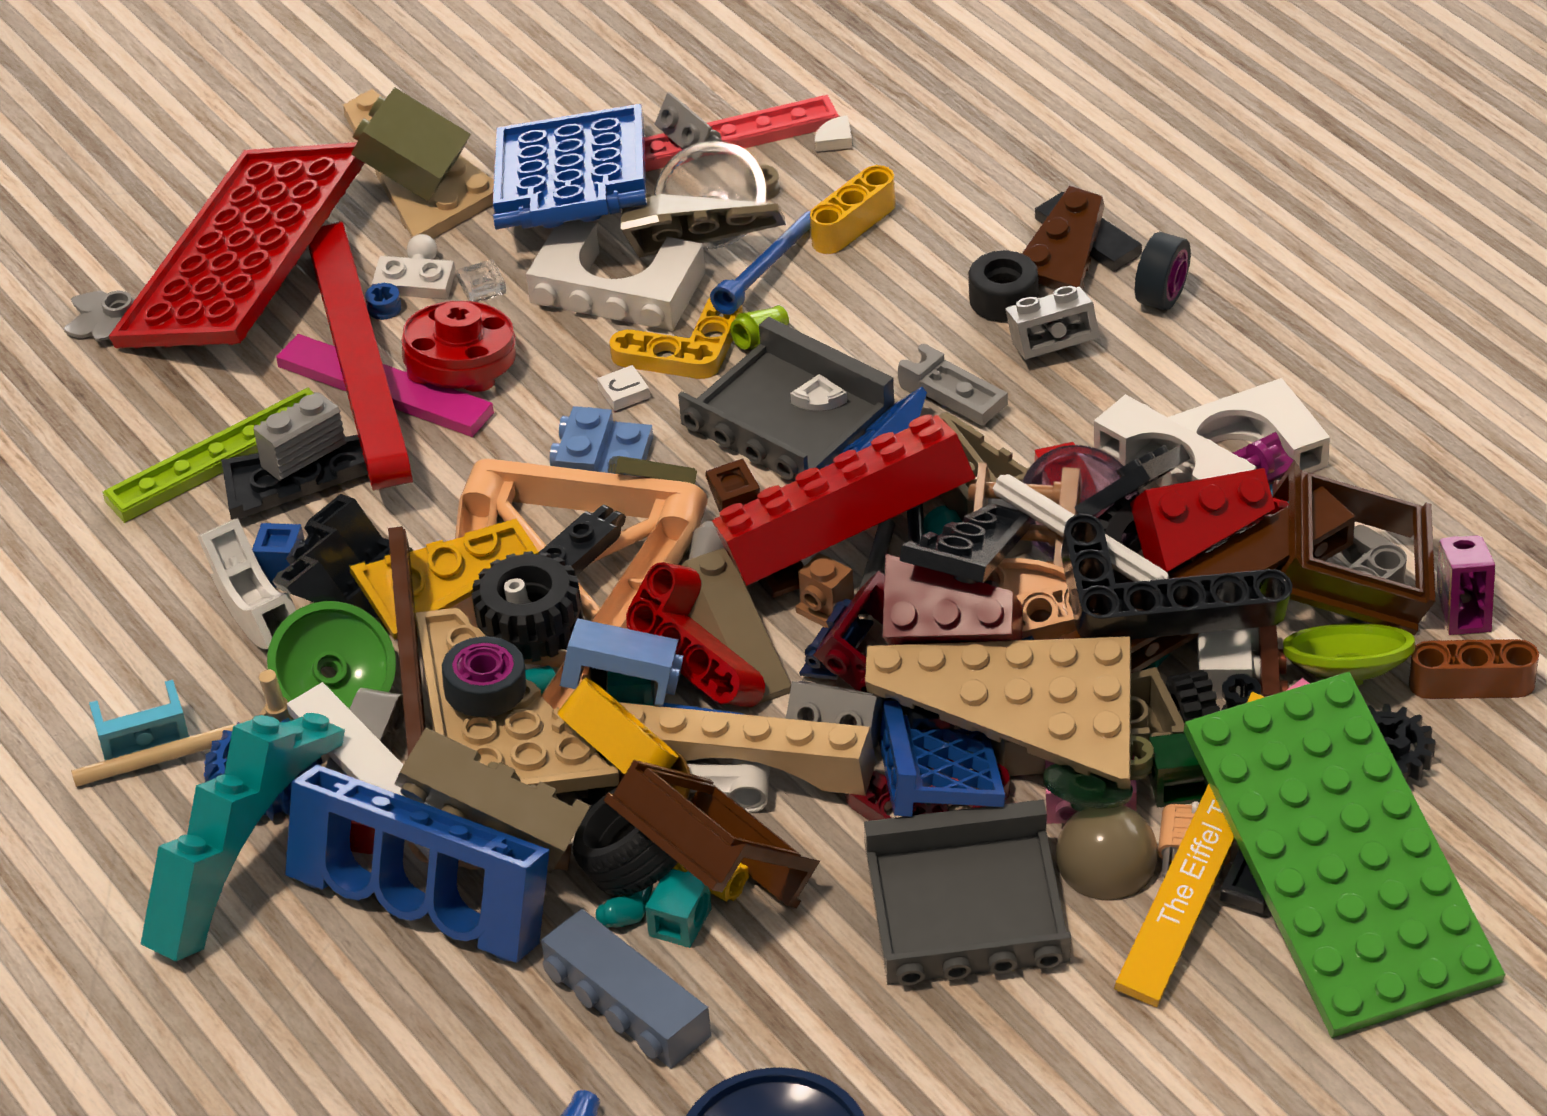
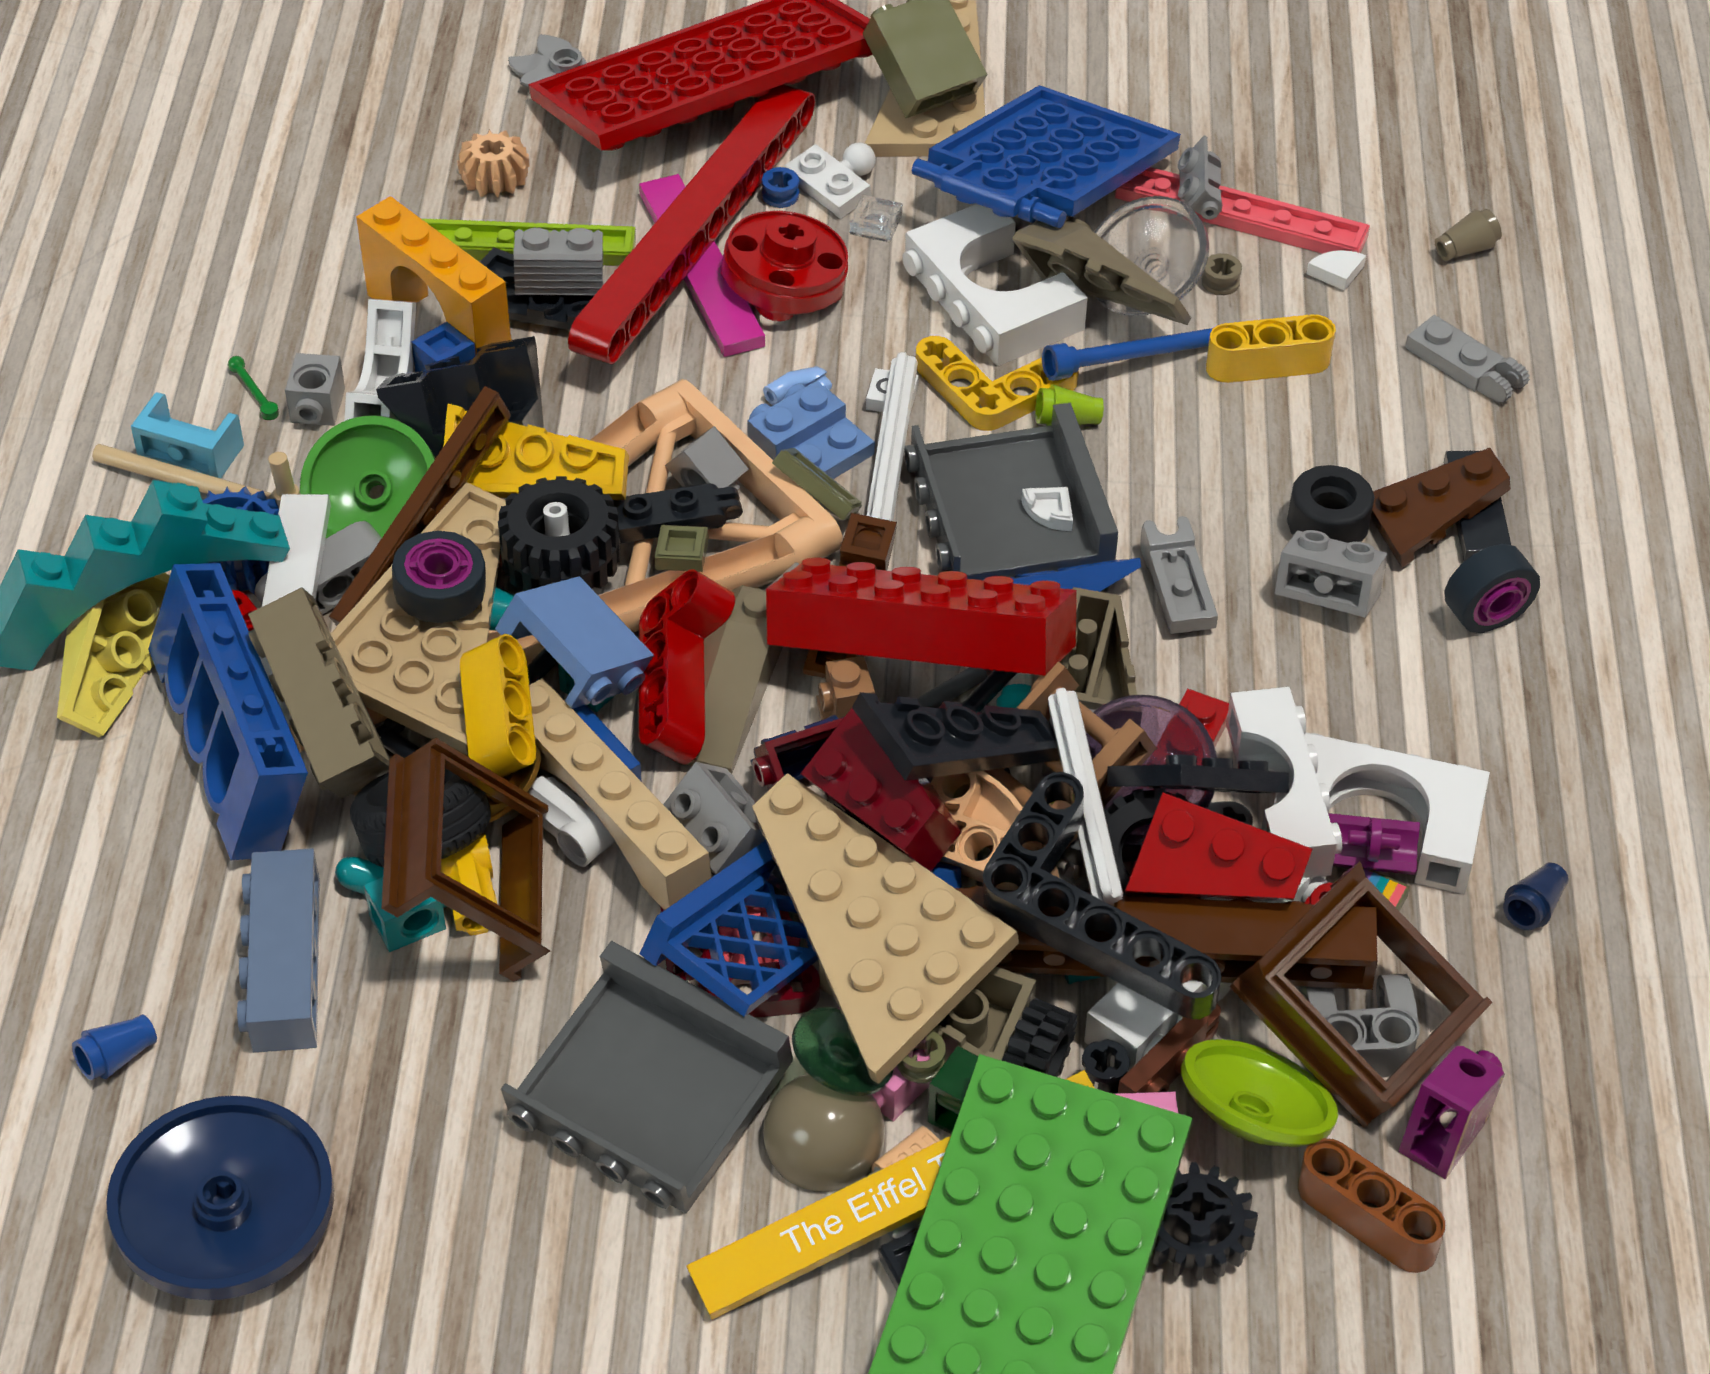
camera: 35 degrees right, 5 degrees up
(148, 404) = (493, 163): none -> light nougat gear
(170, 483) = (408, 254): none -> light orange arch
(172, 671) = (268, 409): none -> green hinge
(200, 632) = (315, 389): none -> light grey brick
(263, 895) = (108, 655): none -> light yellow wedge
(548, 420) = (777, 389): none -> light blue arm
(558, 503) = (708, 461): none -> light grey brick
(611, 565) = (681, 548): none -> olive tile
(664, 413) = (892, 437): none -> white axle
(902, 62) = (1470, 235): none -> dark tan cone
(983, 145) = (1466, 359): none -> light grey hinge
(1377, 438) = (1535, 897): none -> dark blue cone

